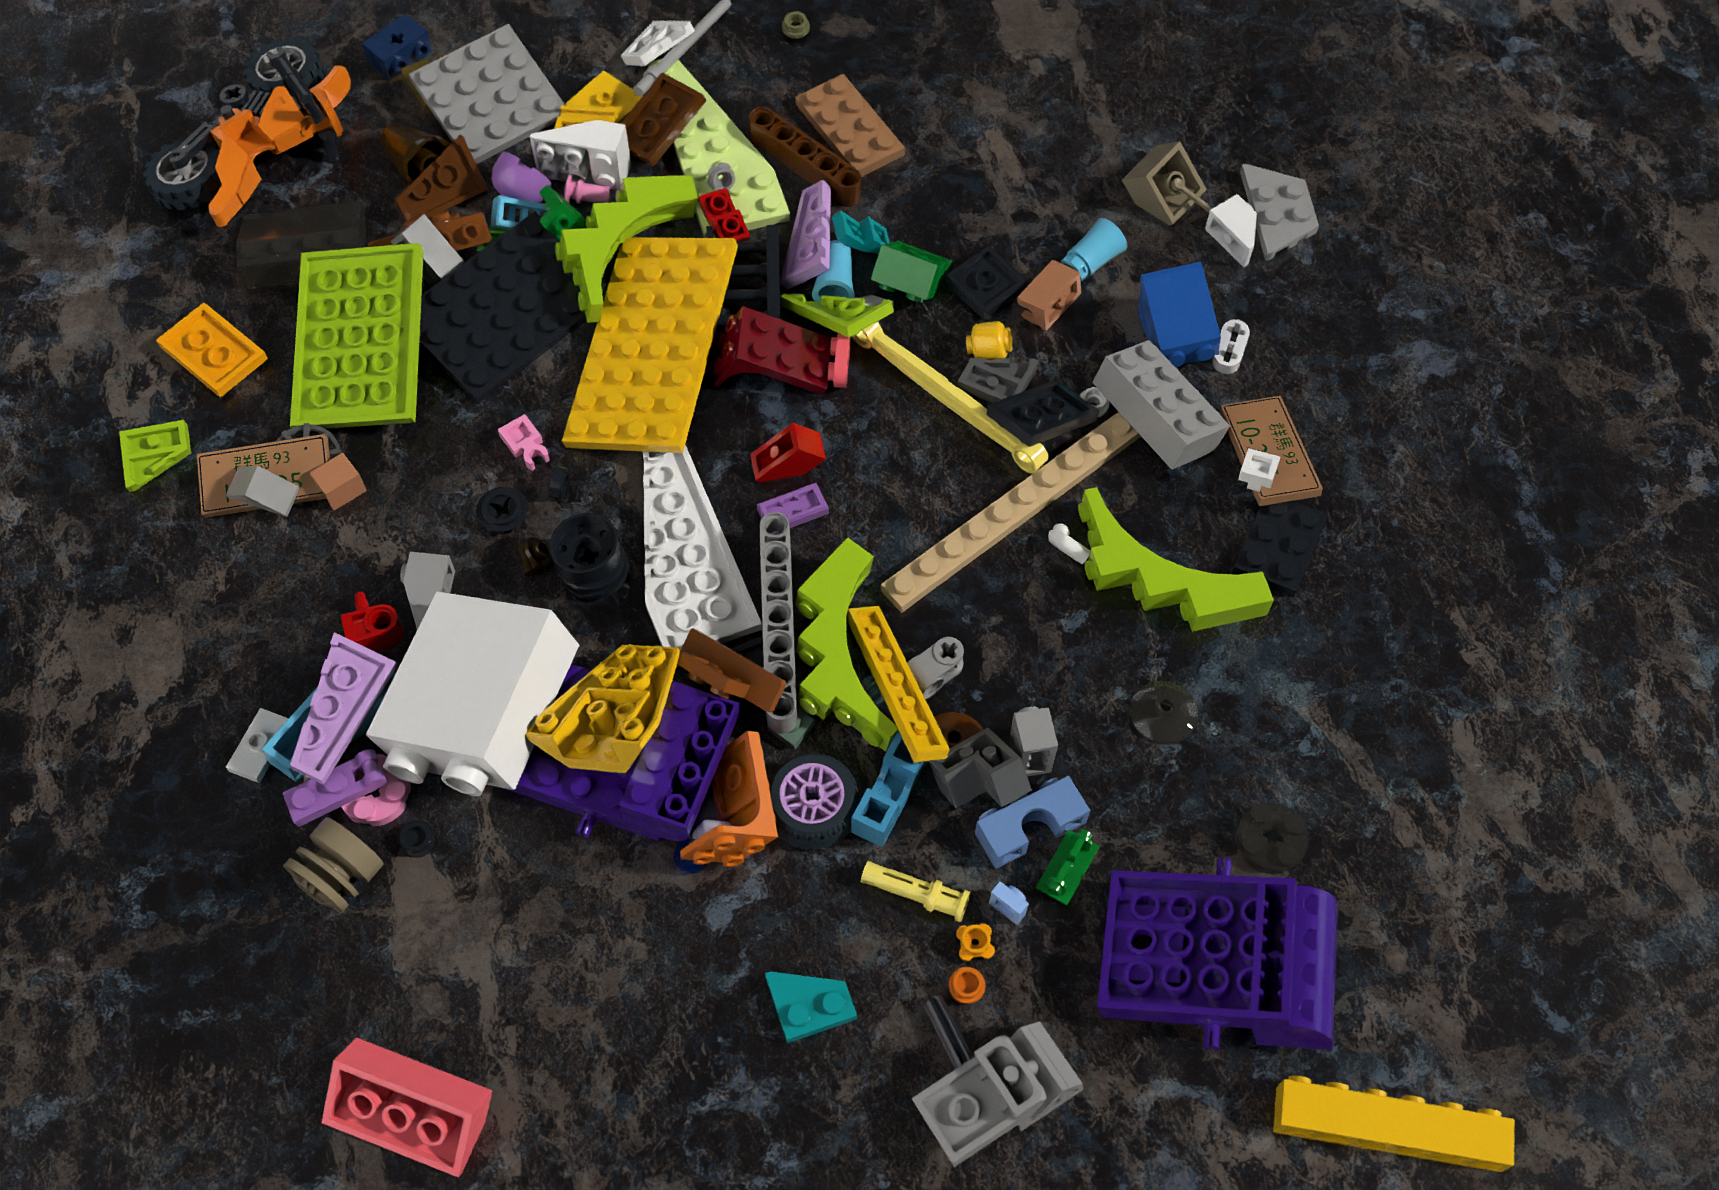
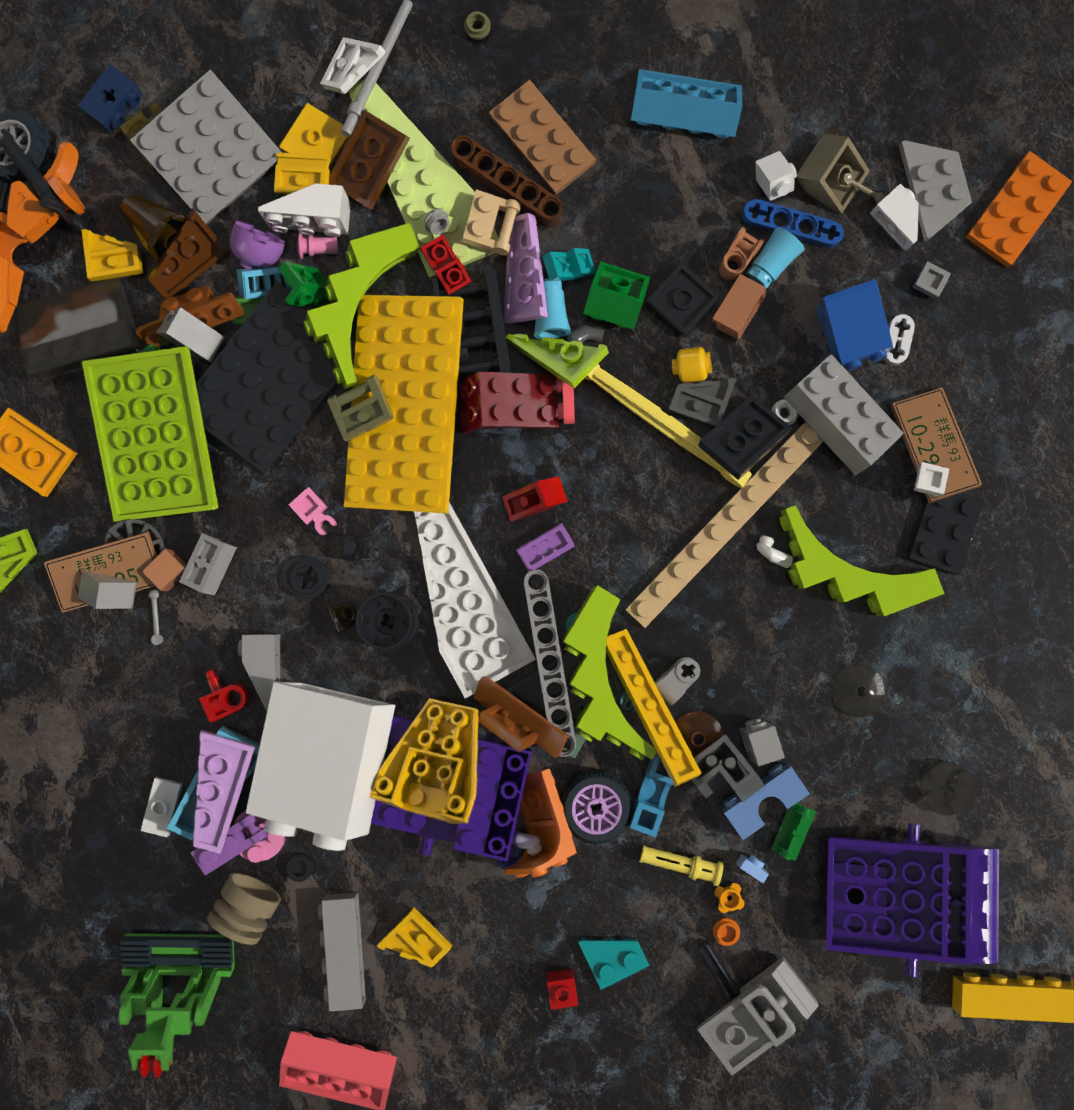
camera: 10 degrees left, 25 degrees up
(212, 942) = (146, 961): none -> bright green container
(305, 558) = (156, 638): none -> light grey hinge
(358, 181) = (109, 257): none -> yellow wing
(388, 480) = (207, 564): none -> light grey hinge
(449, 945) = (342, 951): none -> light grey brick
(548, 944) = (416, 940): none -> yellow wing
(602, 337) = (364, 415): none -> olive plate
(733, 1027) = (562, 989): none -> red brick
(772, 182) = (482, 221): none -> tan plate
(1008, 109) = (687, 103): none -> dark azure slope
(1053, 245) = (741, 252): none -> nougat piece
(1100, 177) = (775, 175): none -> white brick
(1122, 221) = (793, 219): none -> blue beam
(1271, 292) = (931, 280): none -> light grey plate
(1372, 240) = (1018, 209): none -> orange plate

